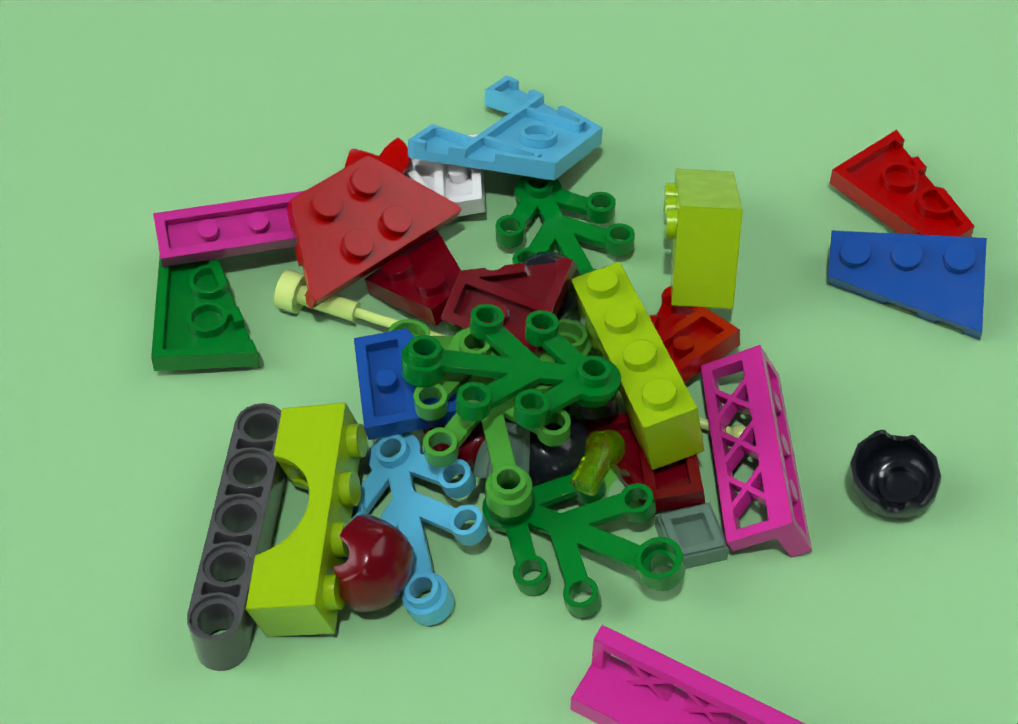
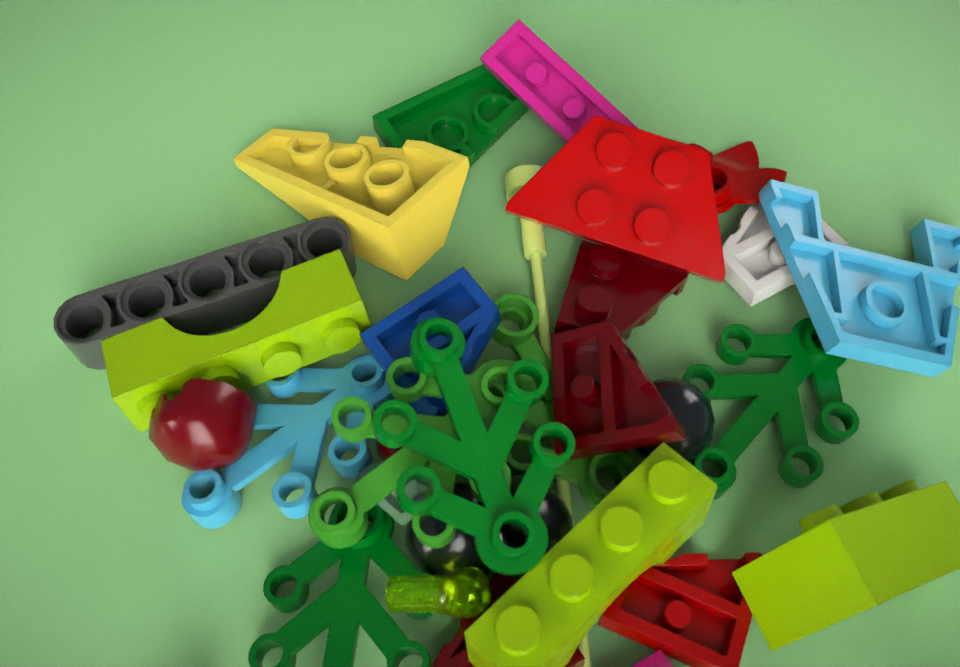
camera: 60 degrees right, 15 degrees up
(242, 365) = (387, 197): none -> light yellow wedge

